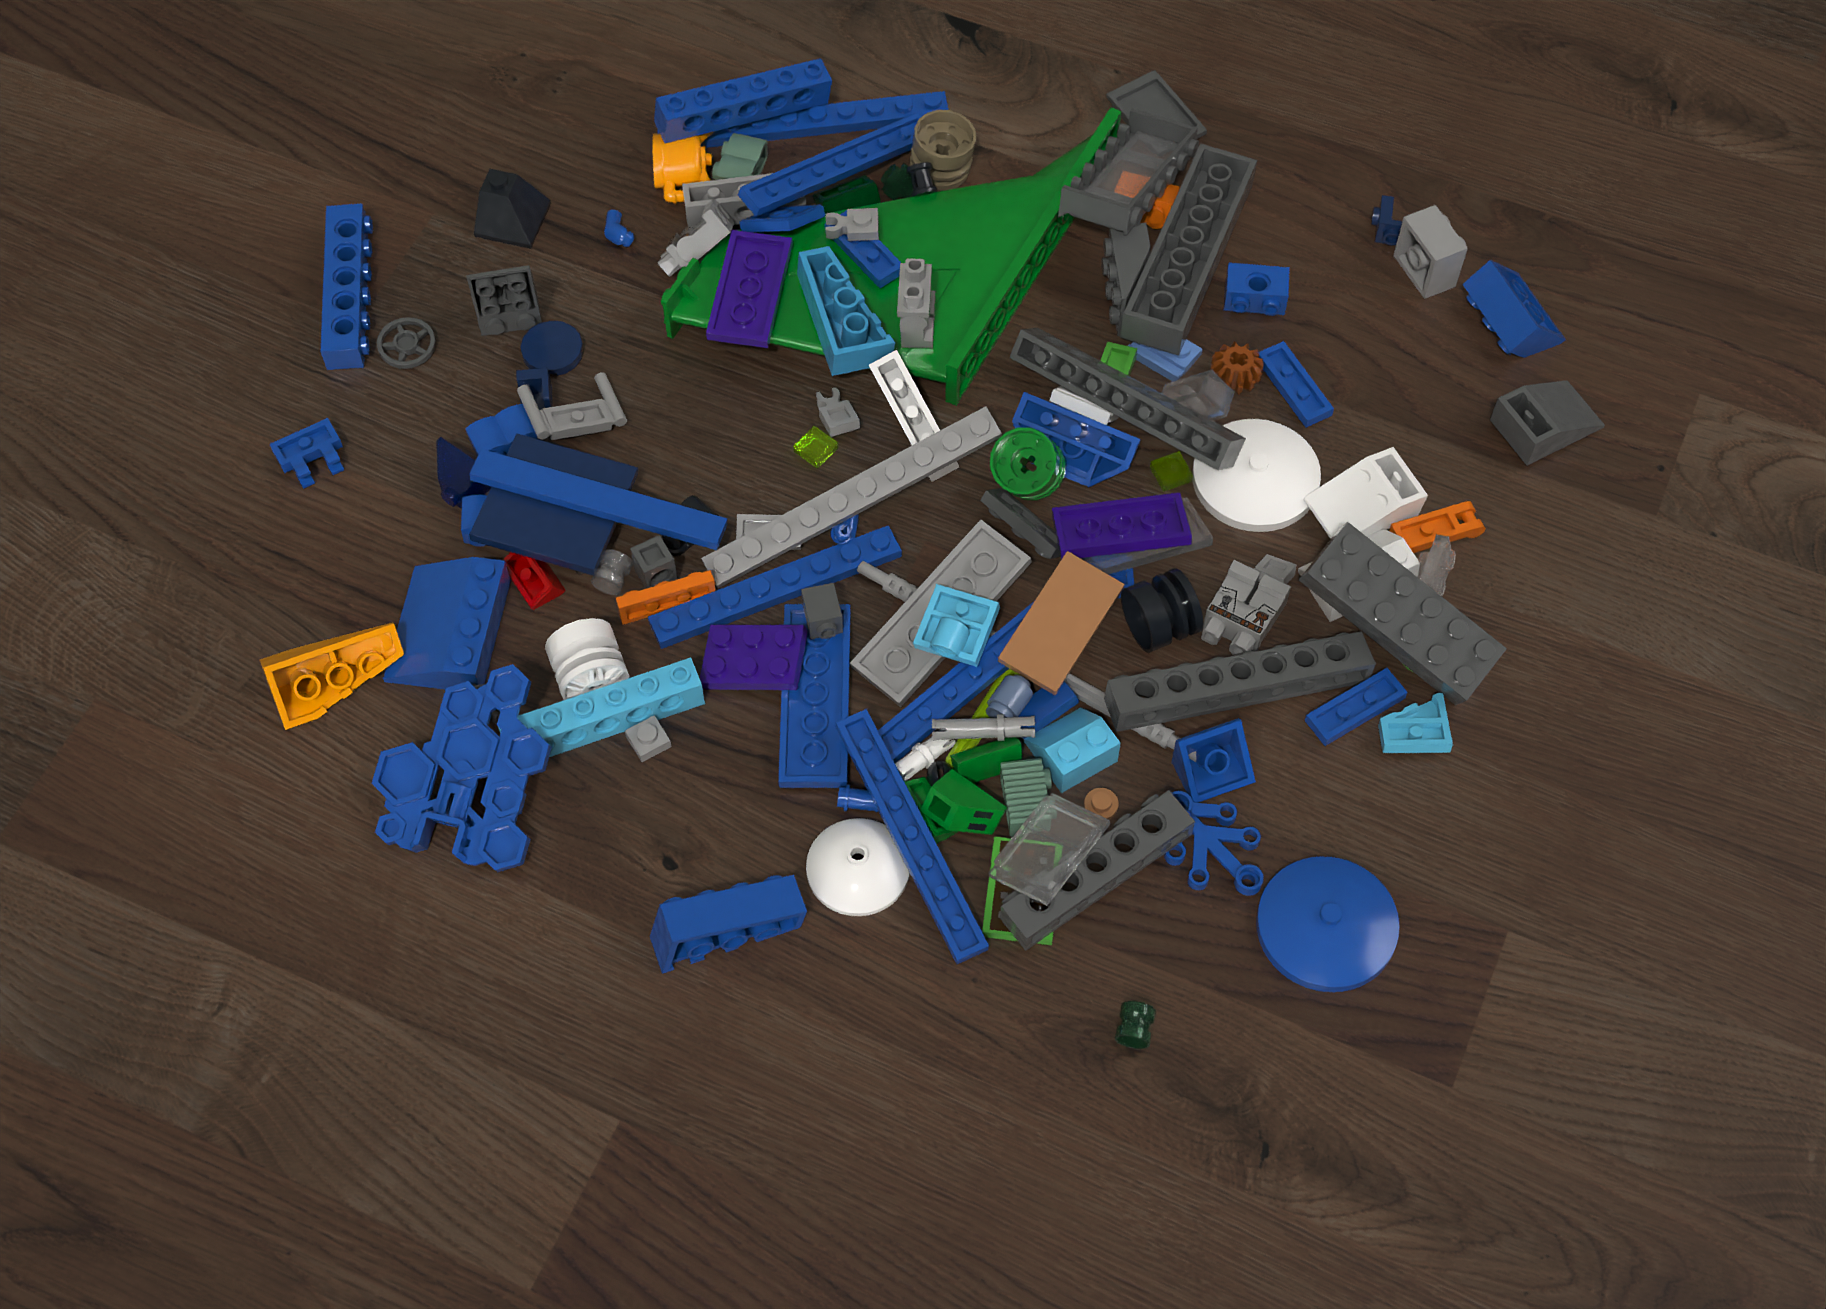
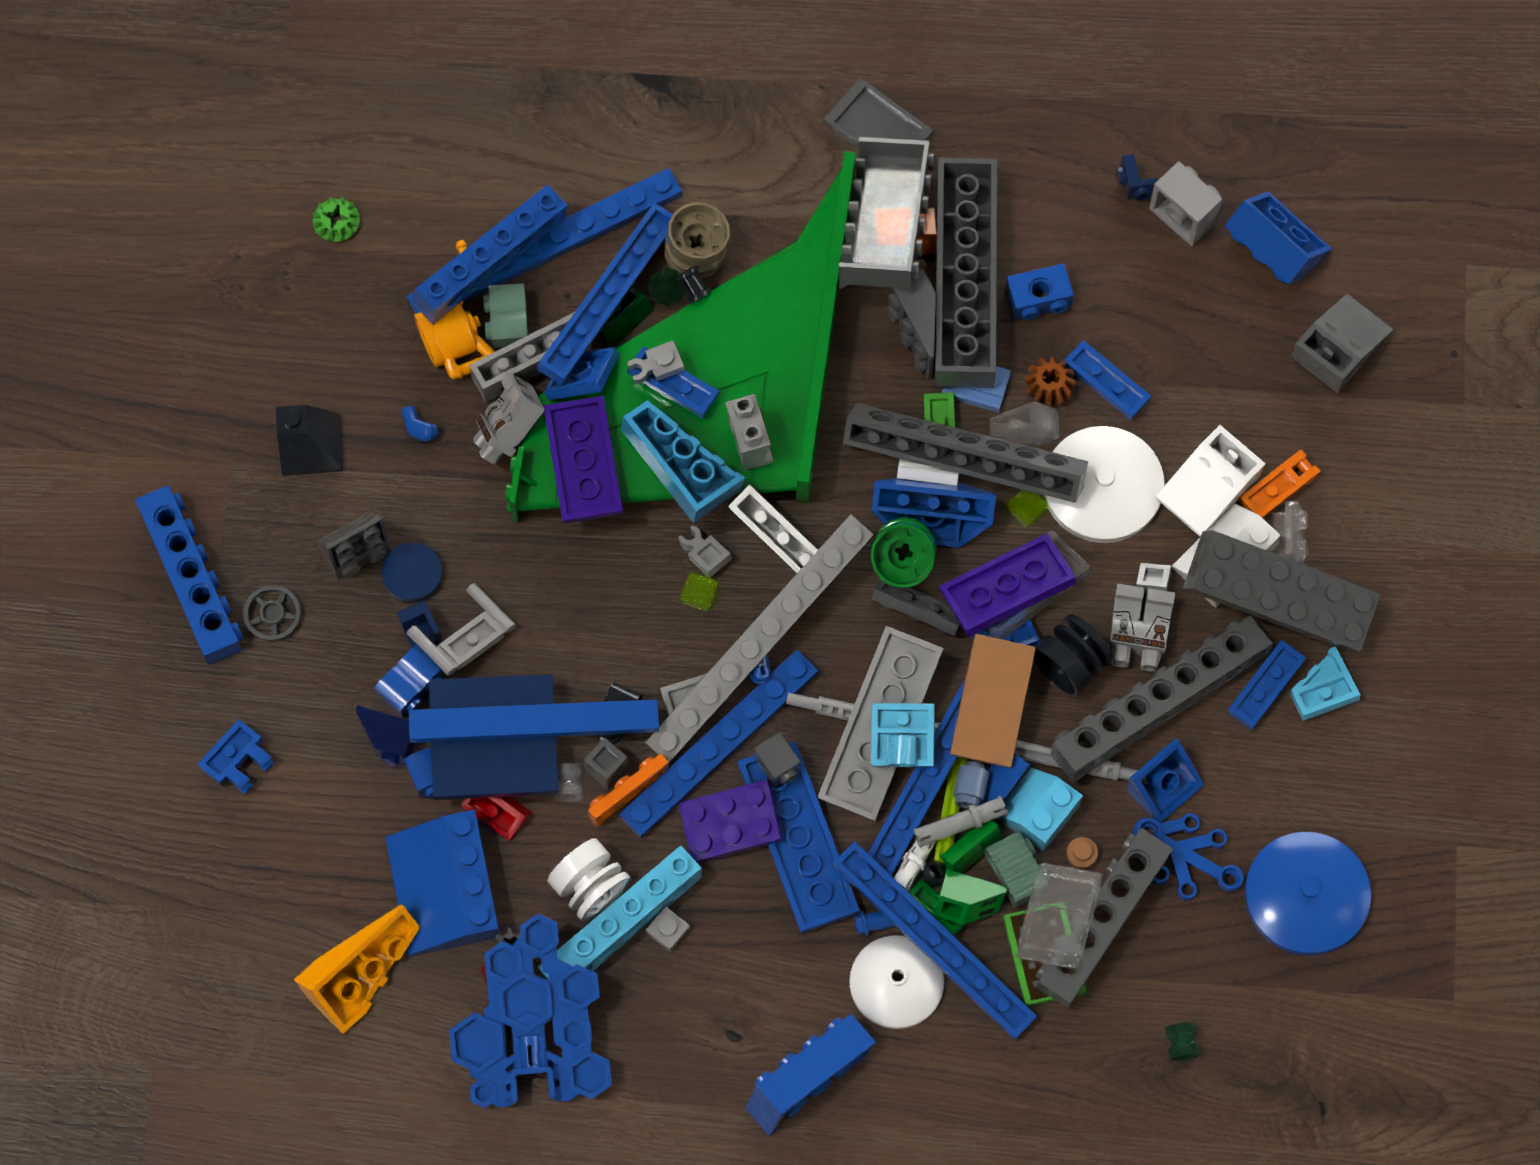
camera: 20 degrees left, 10 degrees up
(625, 56) = (343, 228): none -> bright green gear

